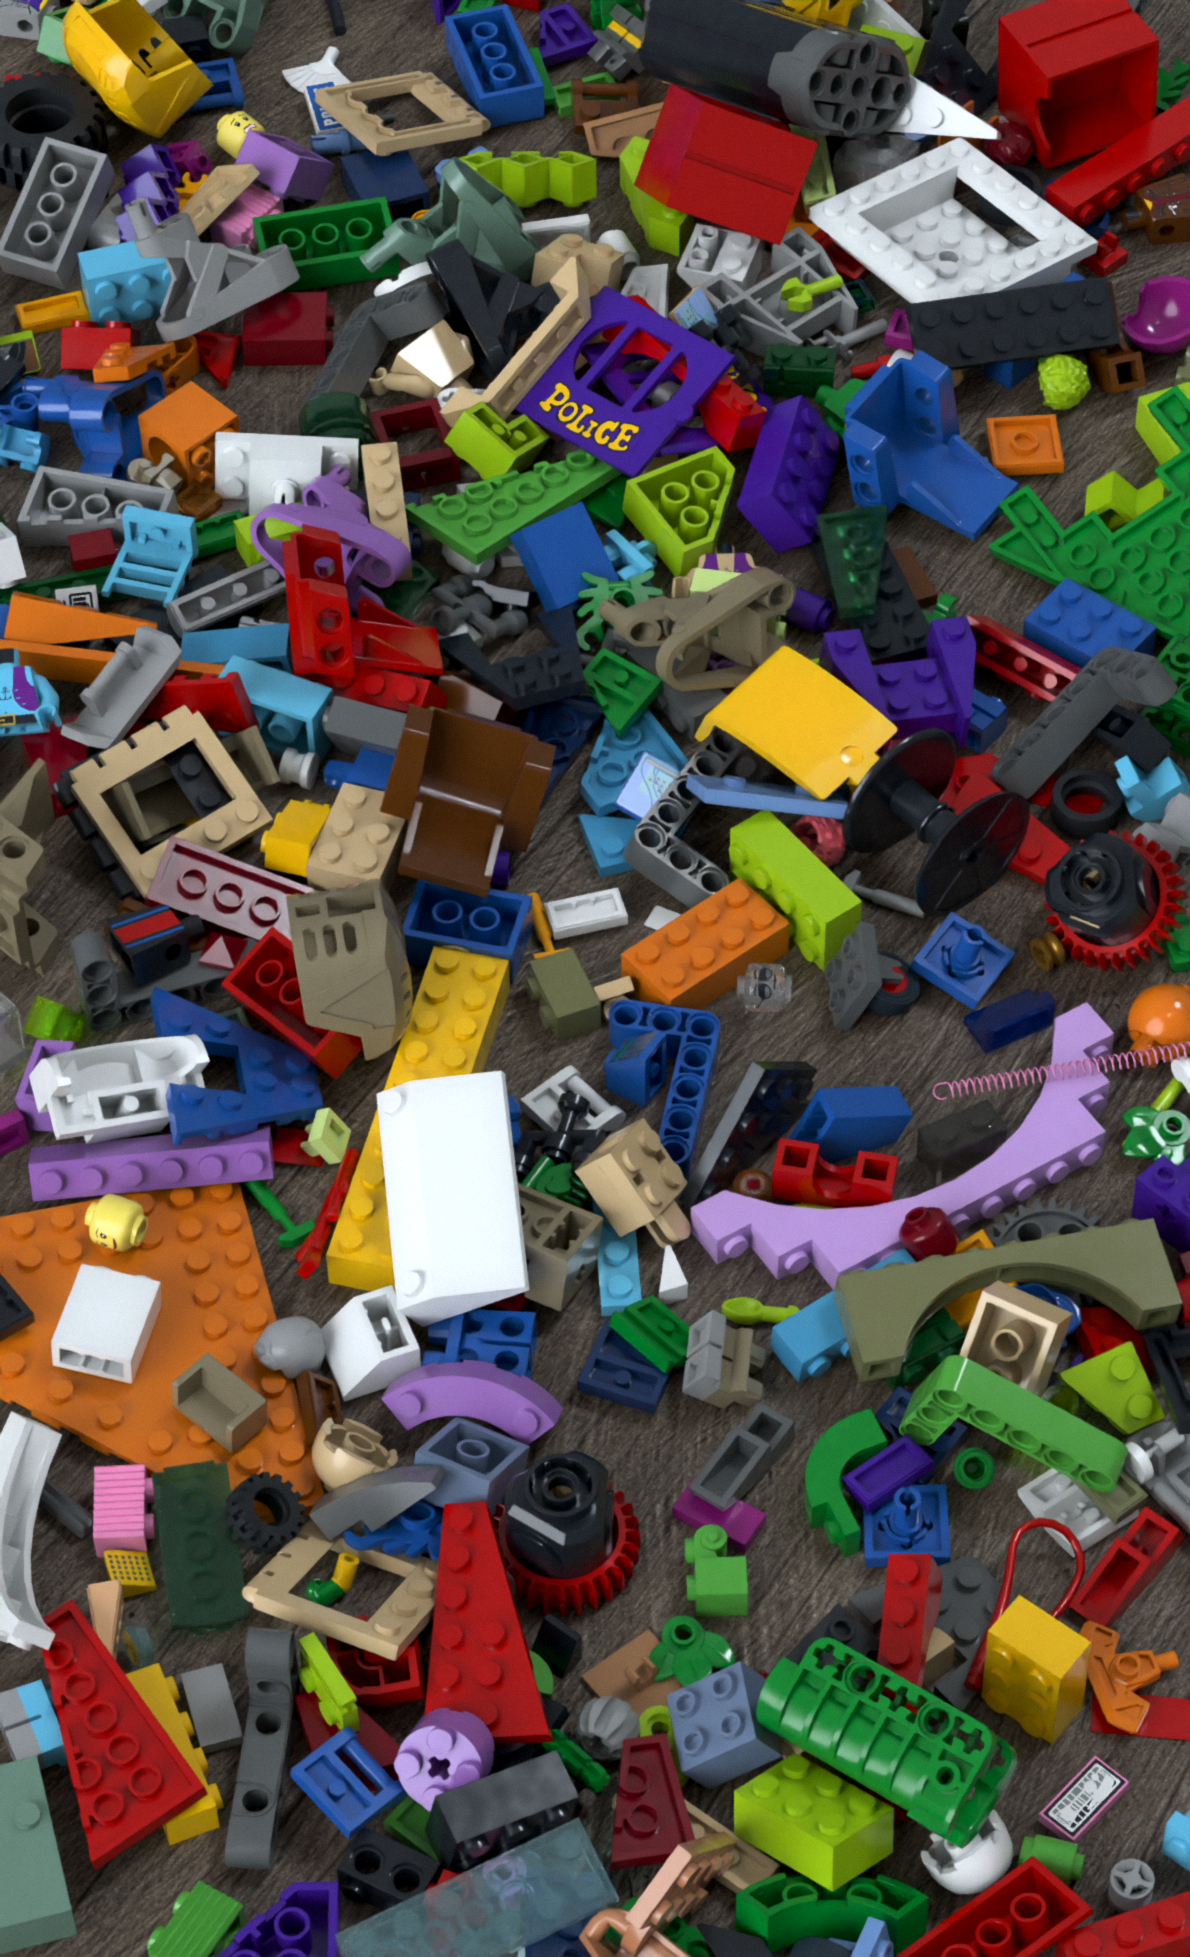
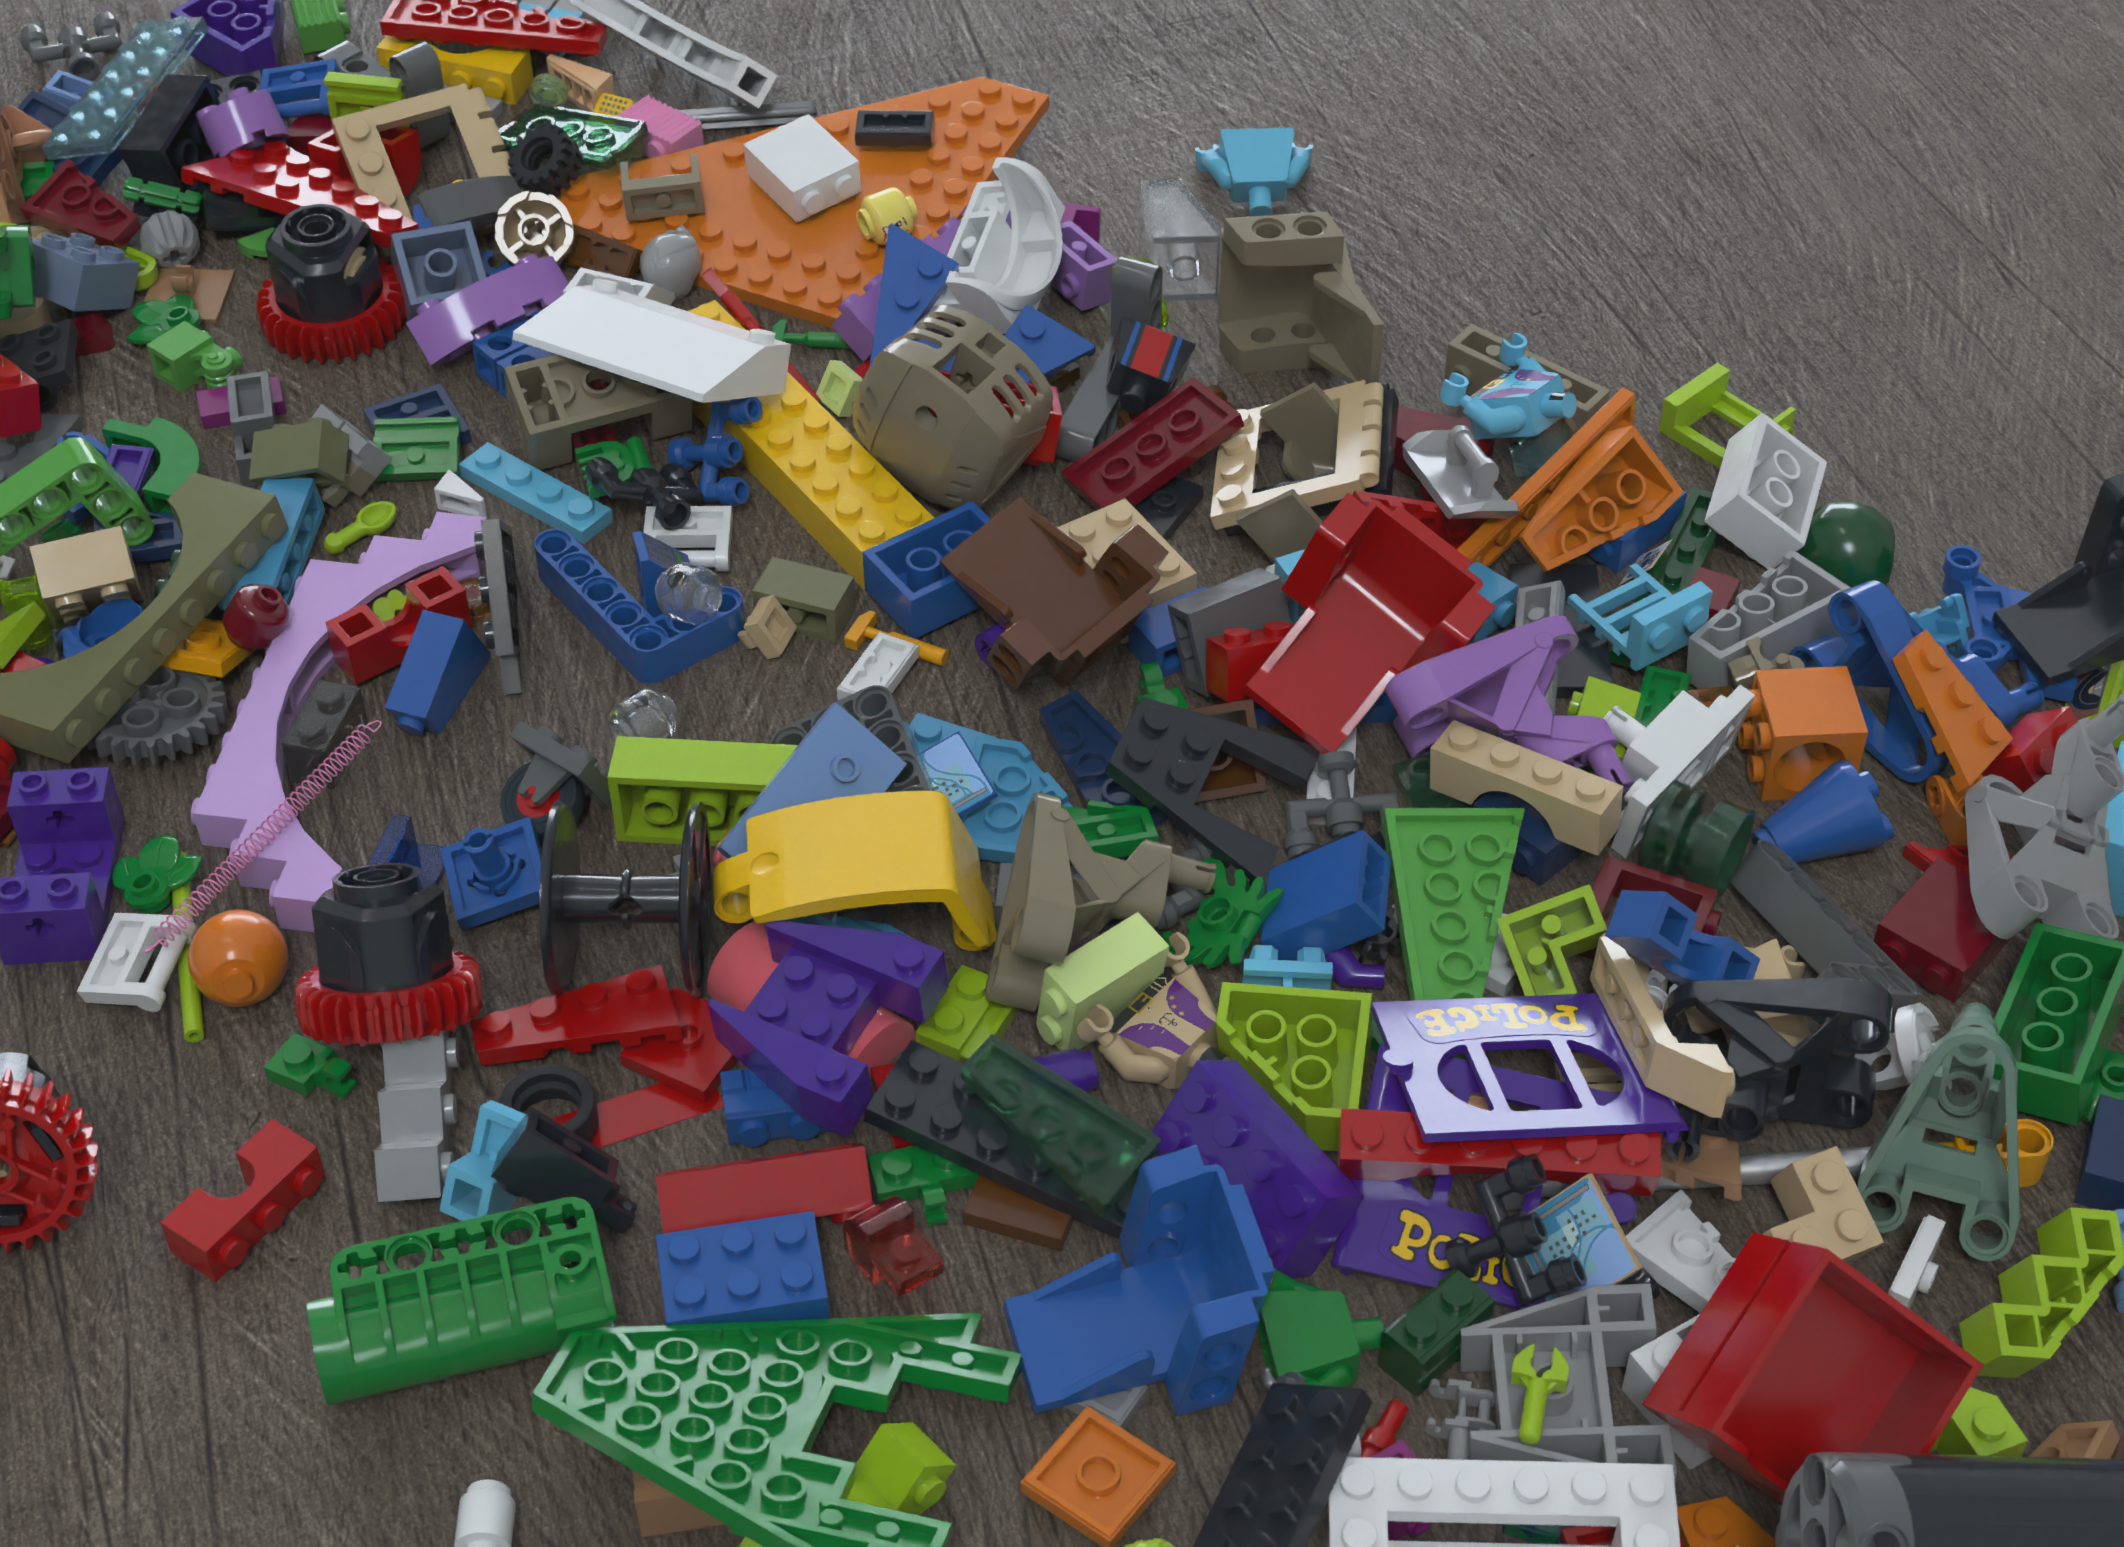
camera: 130 degrees right, 5 degrees down
(223, 951) = (1092, 410): dark red slope -> none
(256, 401) = (1829, 817): none -> blue cone
(294, 836) = (1179, 520): yellow brick -> none
(469, 358) = (1663, 937): none -> blue arch
(558, 1646) = (256, 264): black slope -> none
(637, 1184) = (546, 483): tan brick -> none
(654, 1006) = (688, 593): none -> clear head
(706, 949) = (733, 684): orange brick -> none
(764, 1352) = (300, 451): none -> olive brick
(1000, 587) = (891, 1246): none -> clear red brick
(1077, 711) = (612, 1168): dark grey beam -> none

